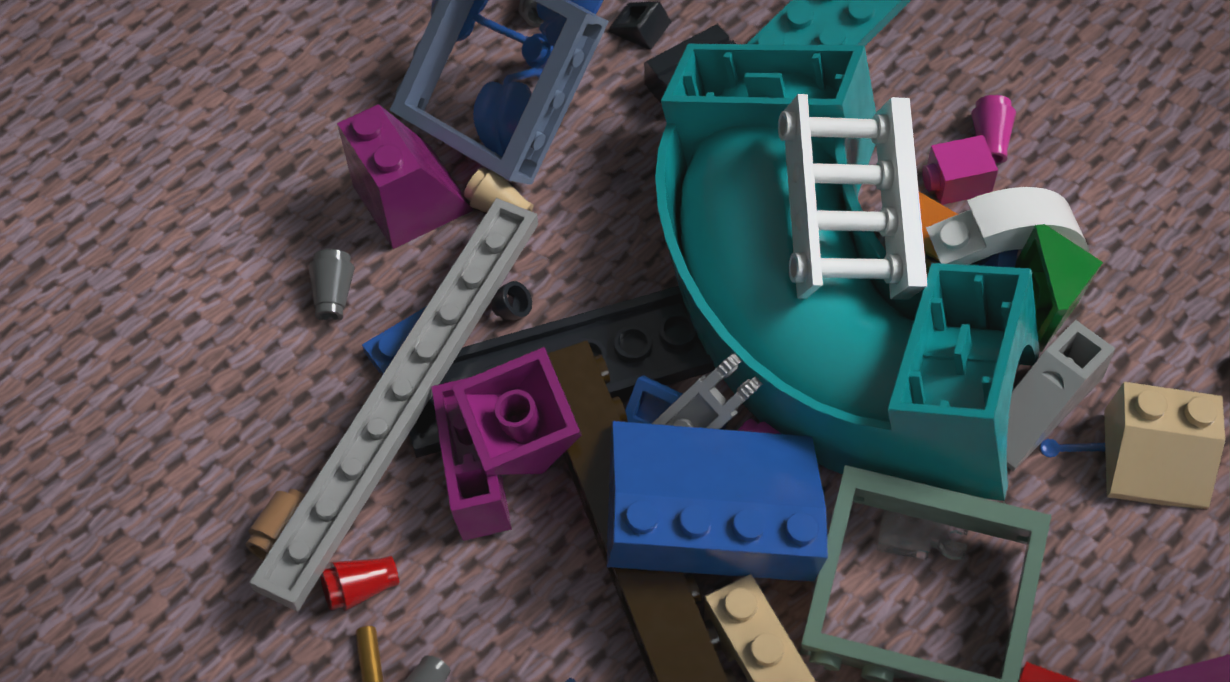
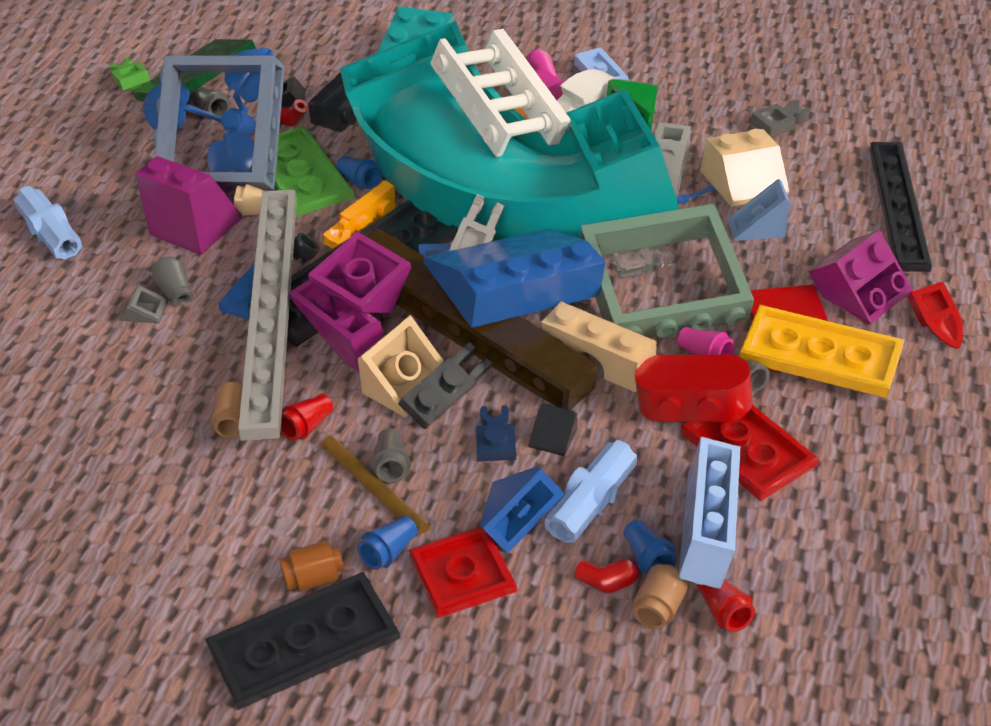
camera: 30 degrees left, 15 degrees down
(243, 119) = (47, 222): none -> light blue piece
(282, 305) = (144, 306): none -> dark grey slope
(508, 572) = (397, 364): none -> tan slope
(541, 623) = (443, 387): none -> black hinge
(586, 170) = (309, 171): none -> bright green tile
(605, 284) = (362, 214): none -> light orange hinge
(618, 62) = (292, 115): none -> red arm
(644, 203) = (361, 172): none -> blue cone
(1076, 162) = (599, 60): none -> light blue plate
(1130, 542) = (763, 215): none -> medium blue slope

